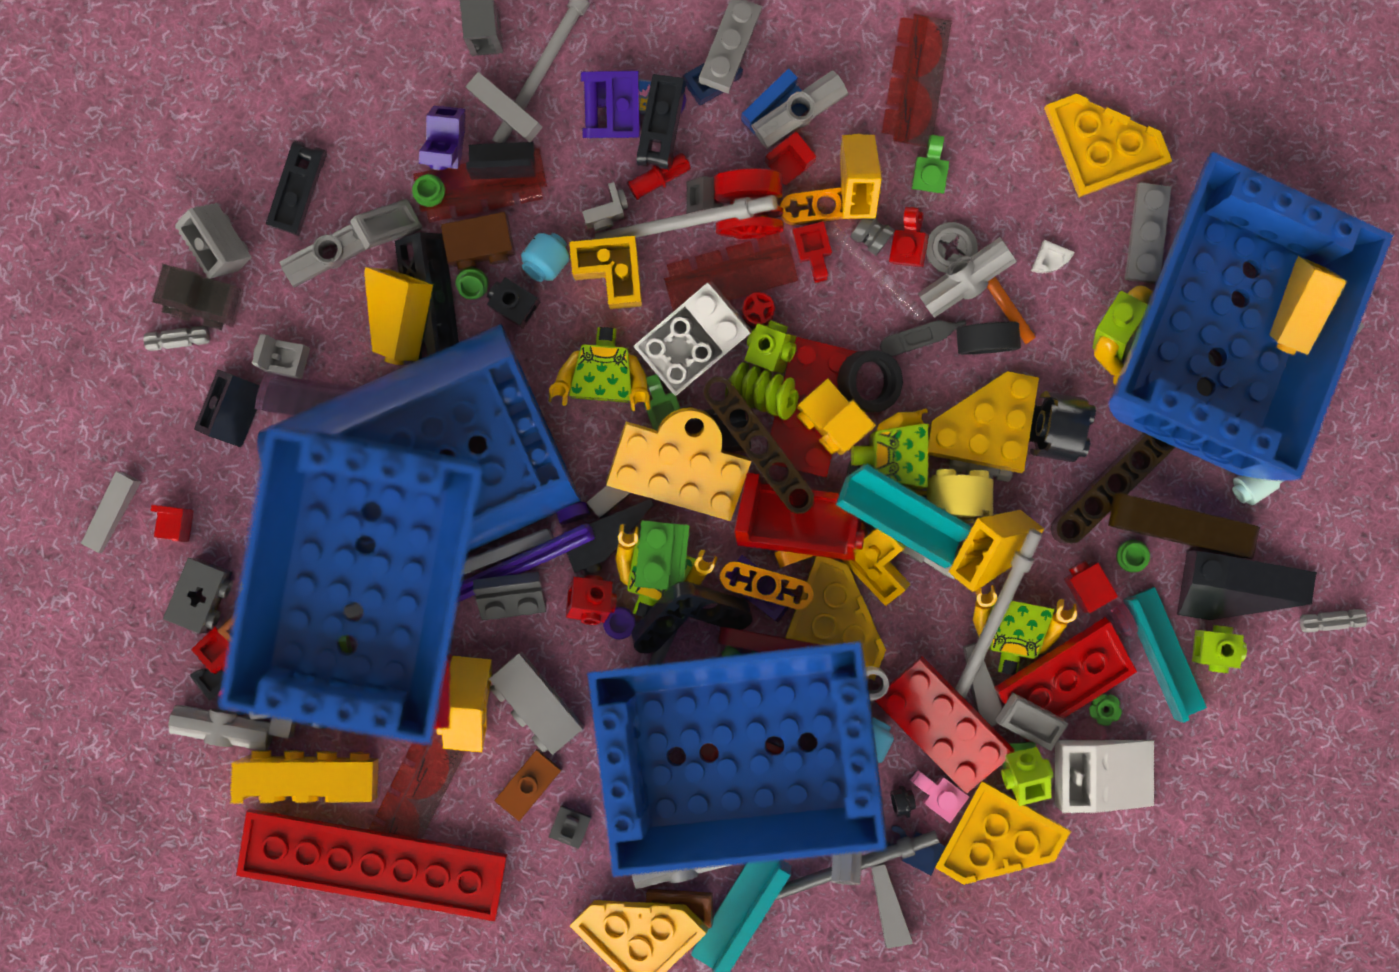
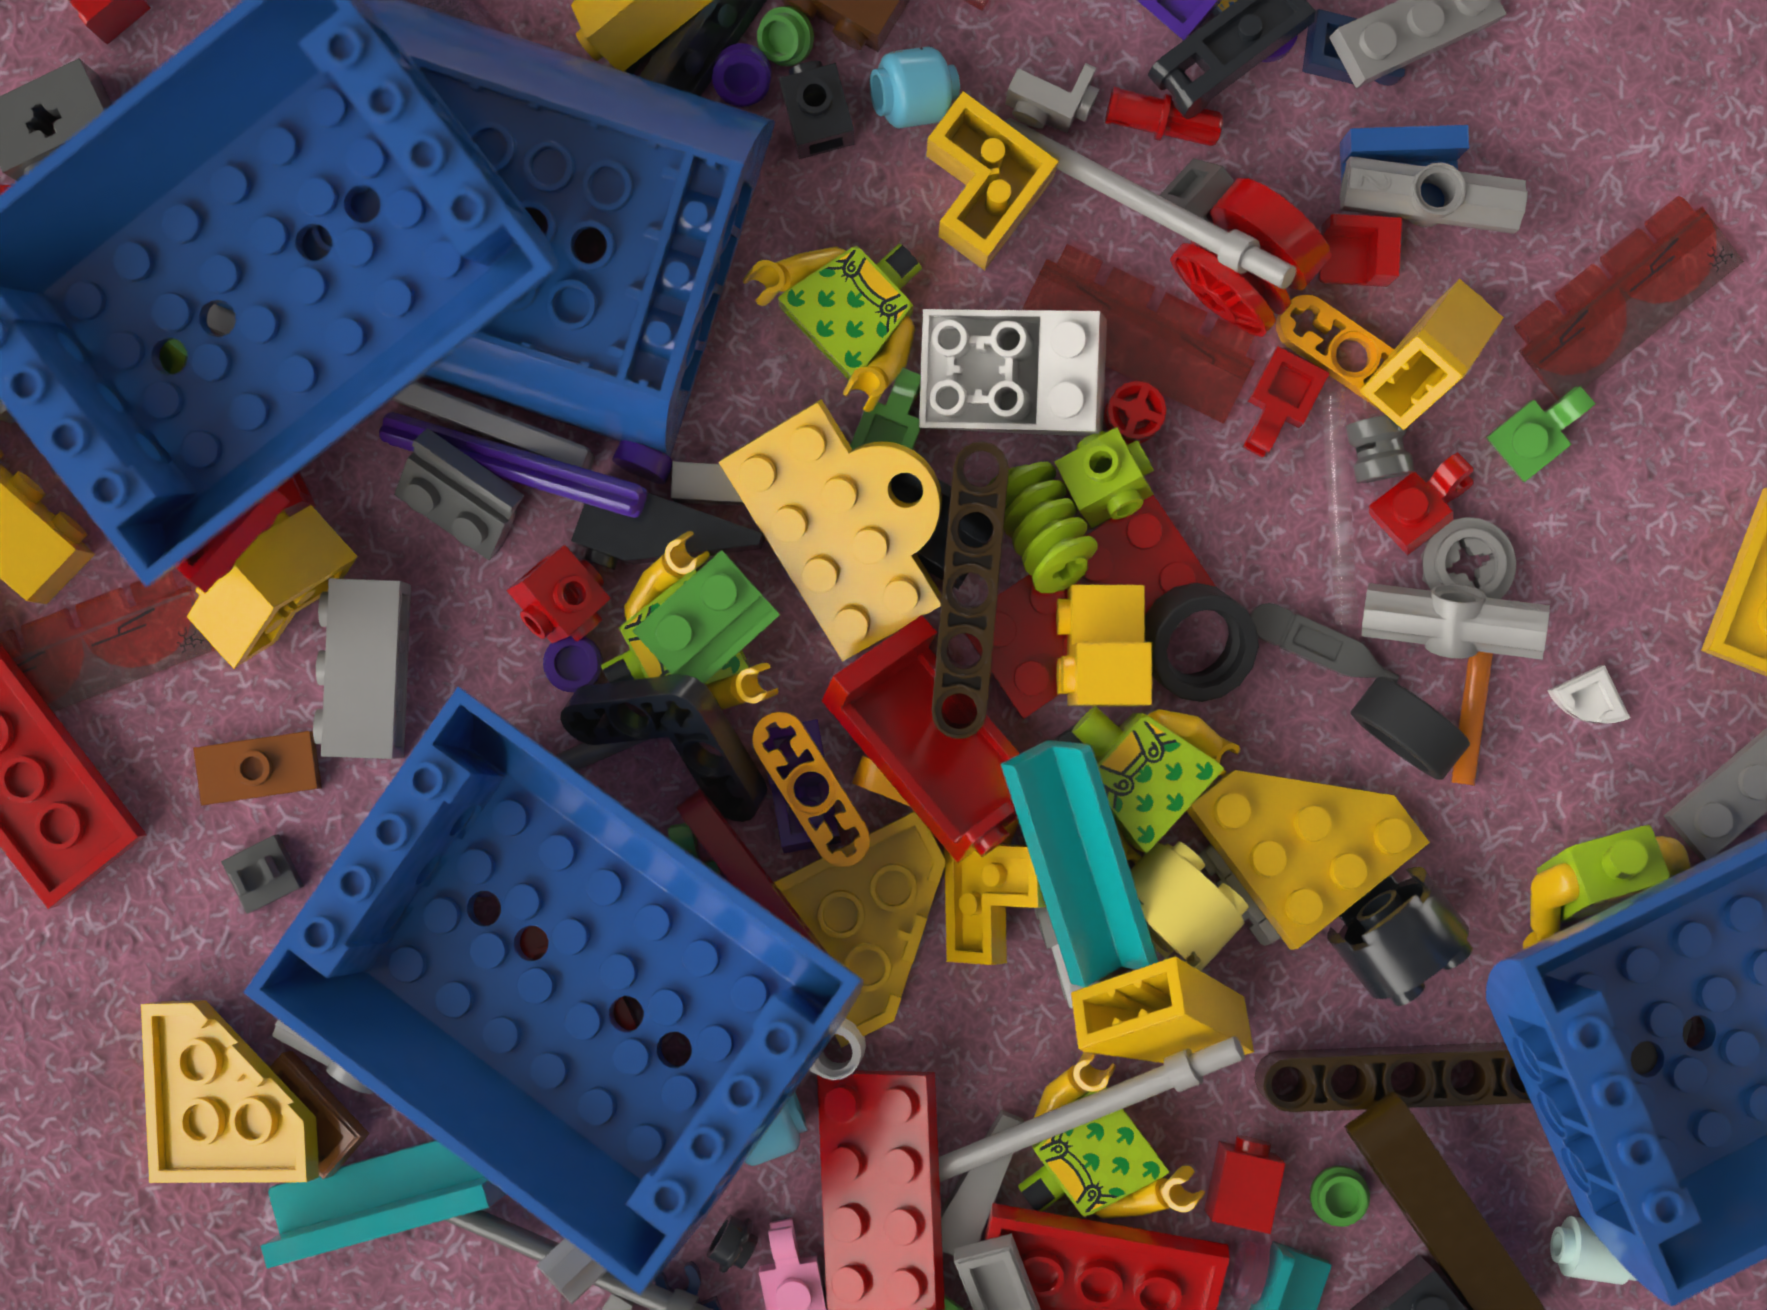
camera: 40 degrees right, 0 degrees up
(468, 315) = (741, 75): none -> dark purple tile

